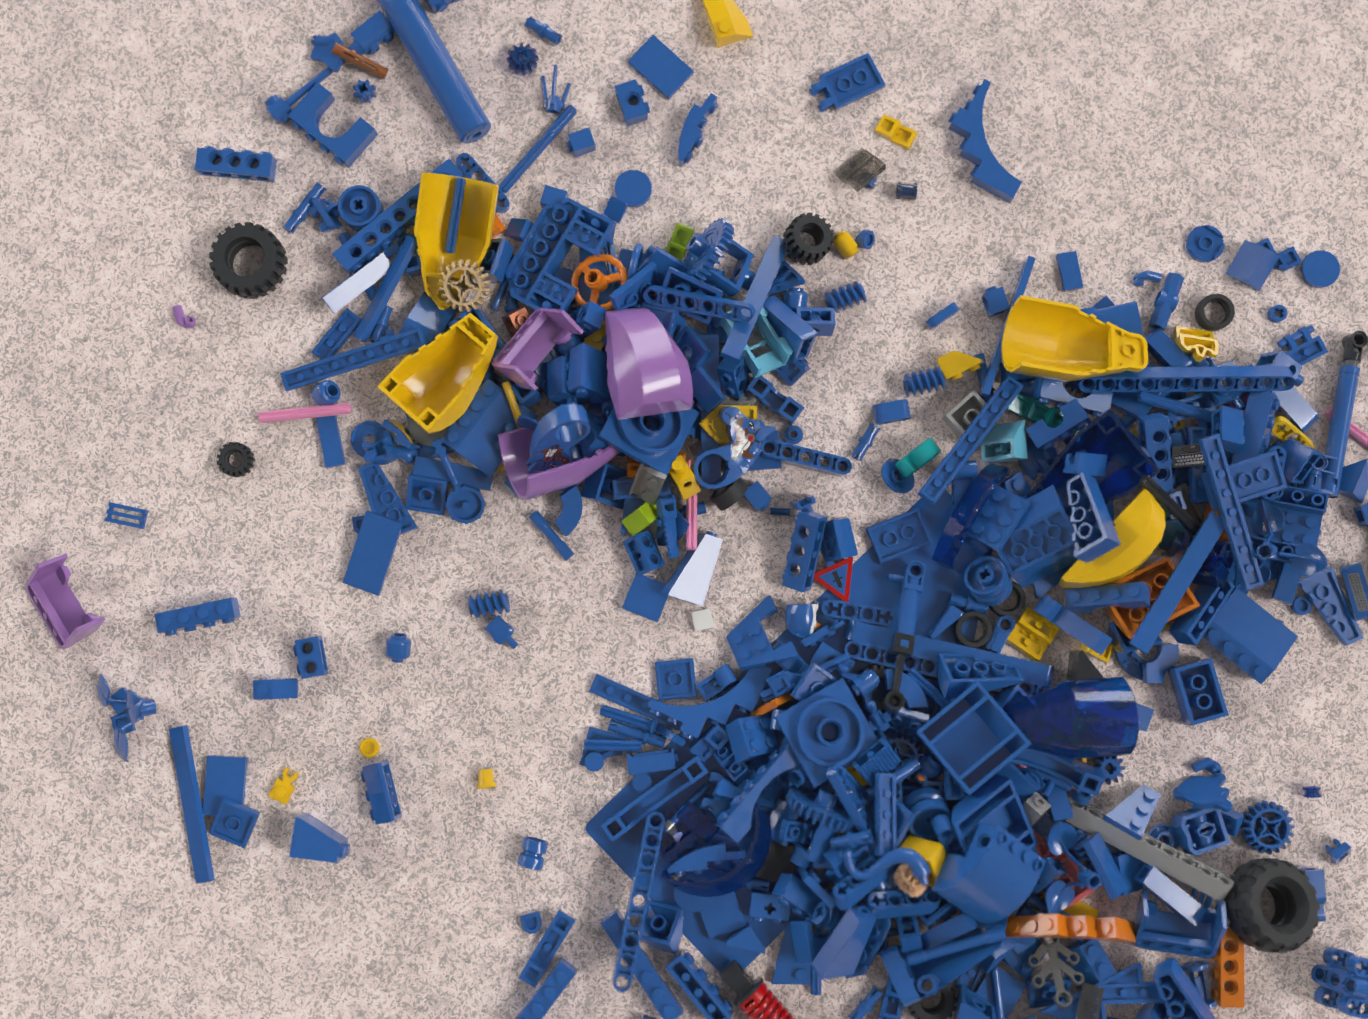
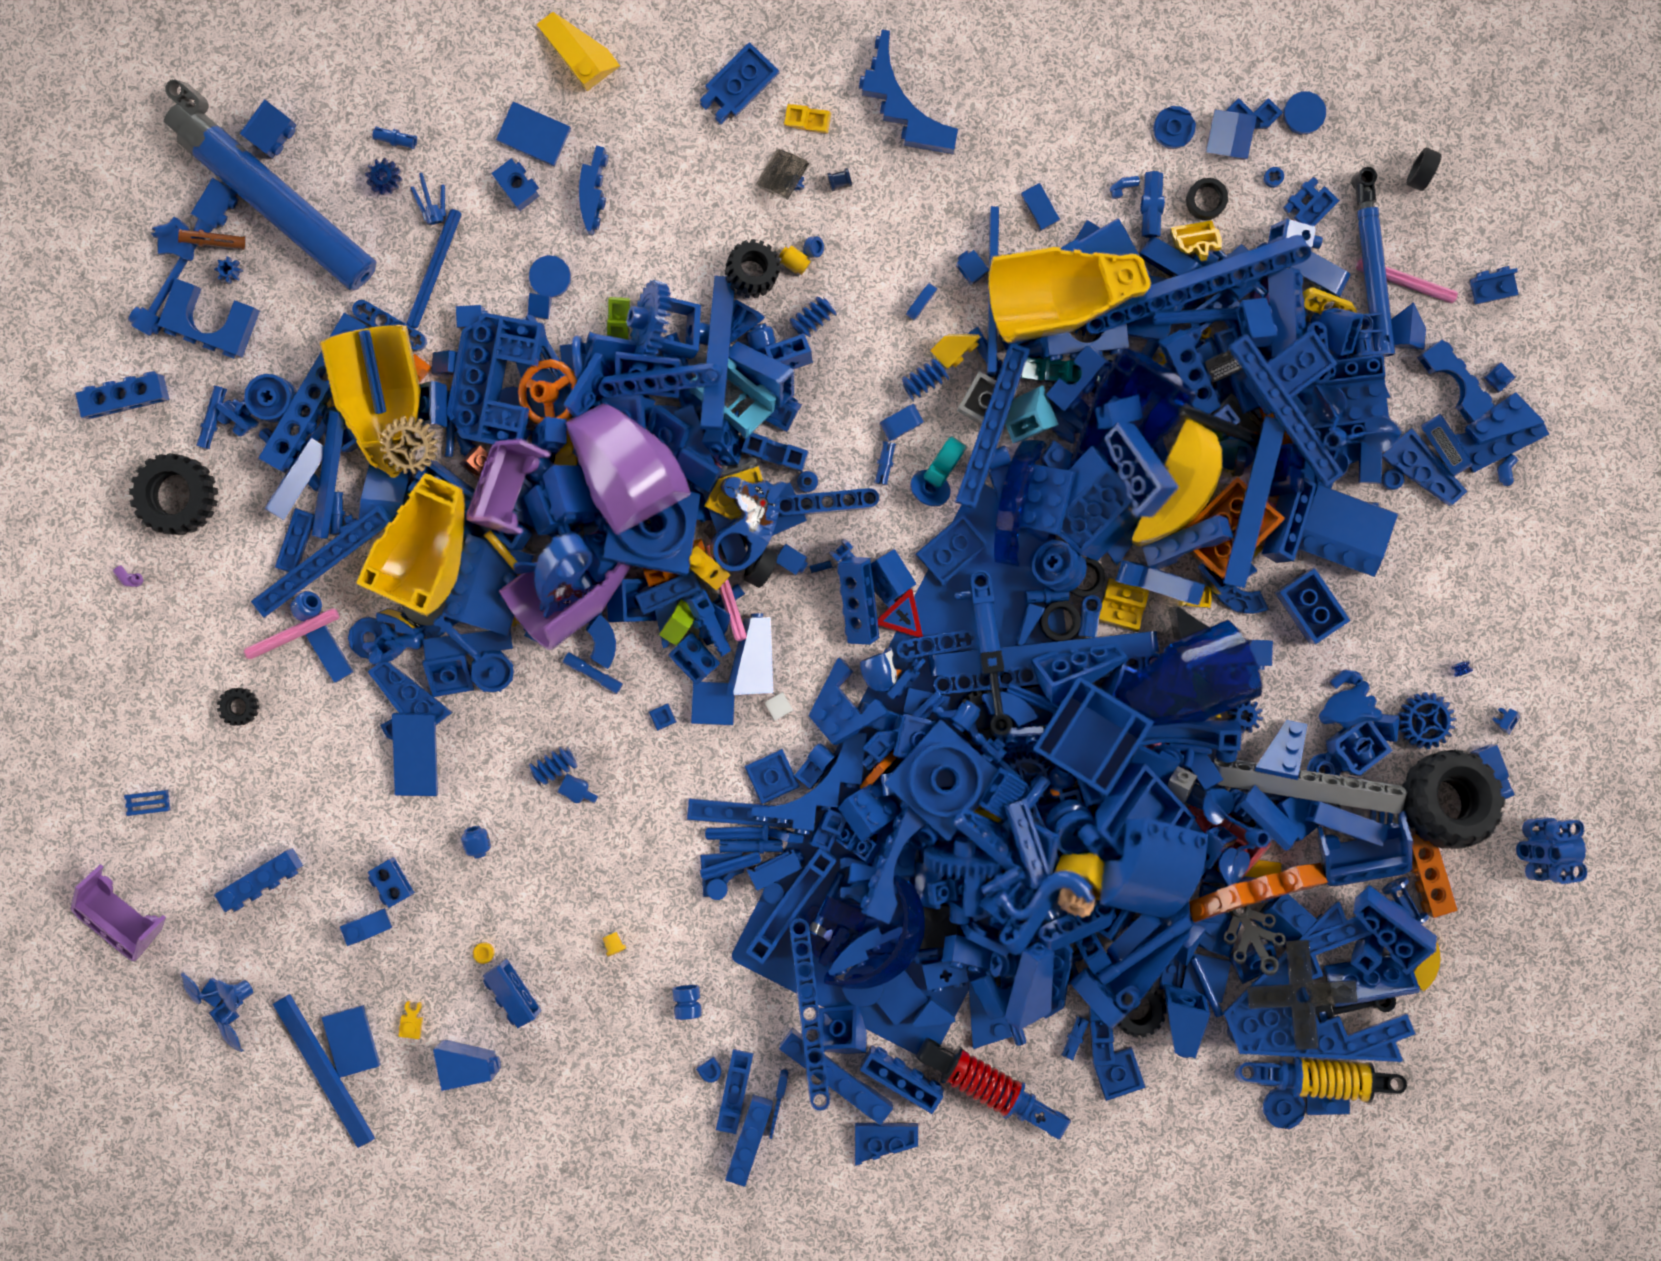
camera: 15 degrees left, 5 degrees up
(234, 822) = (374, 1074): blue tile -> none
(581, 142) = (477, 246): blue brick -> none
(586, 965) = (780, 1092): none -> blue piece
(598, 594) = (662, 716): none -> blue tile
(648, 484) = (672, 588): dark grey plate -> none
(1164, 658) = (1267, 583): blue tile -> none

